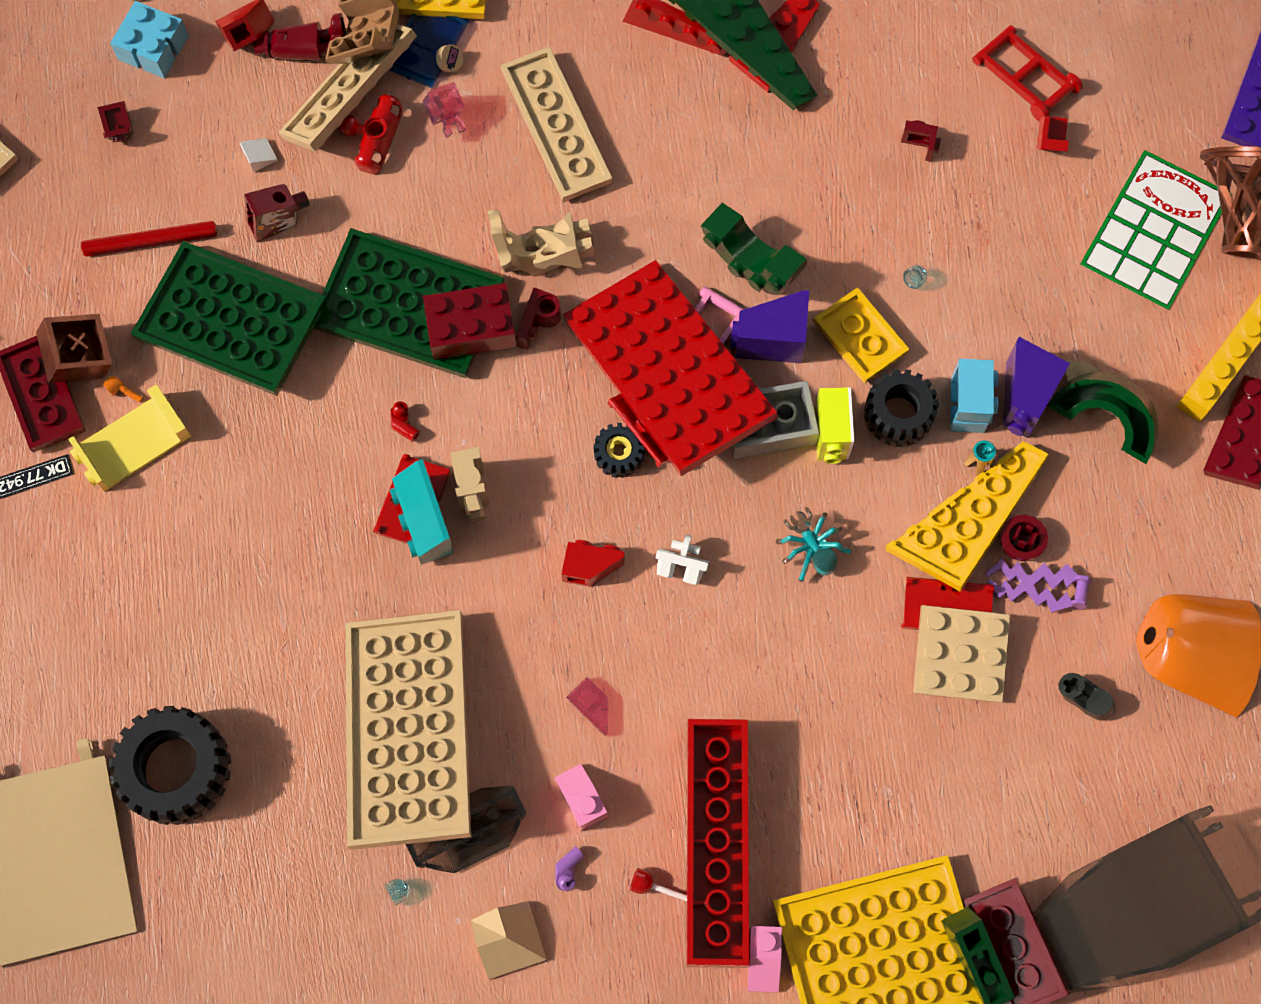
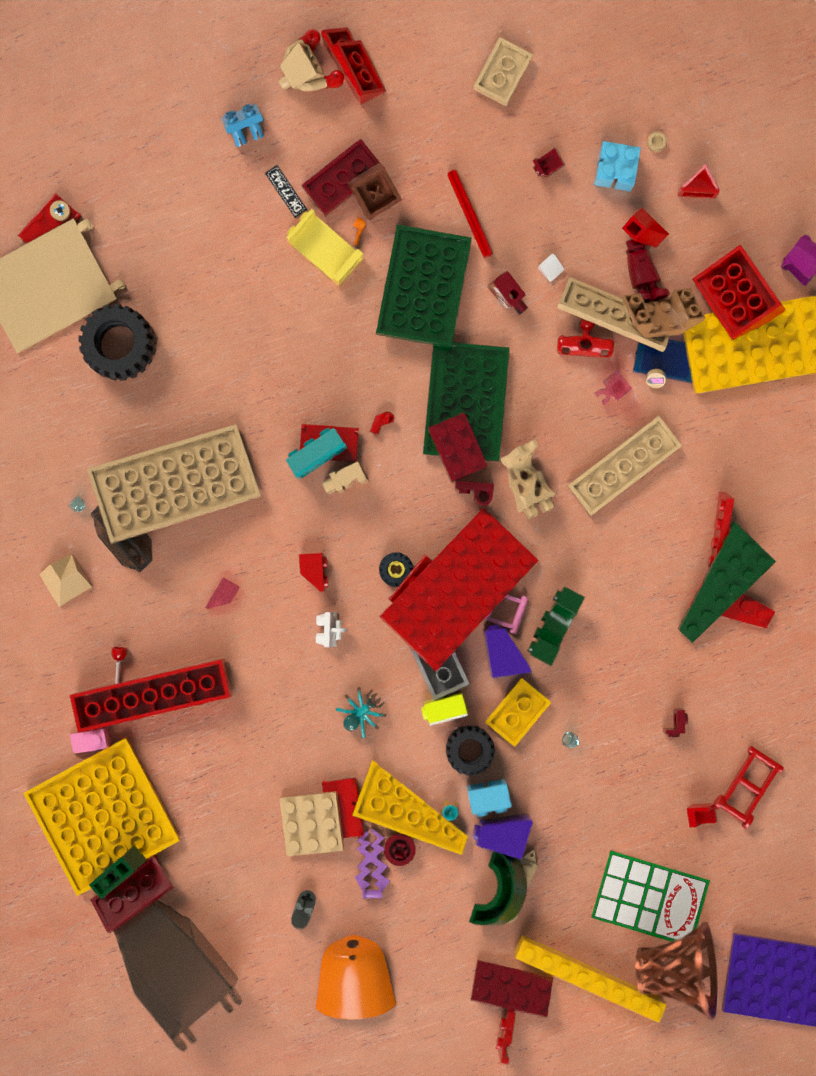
camera: 75 degrees right, 15 degrees up
(565, 869) = (115, 604): medium lavender arm -> none
(581, 797) = (161, 603): bright pink slope -> none

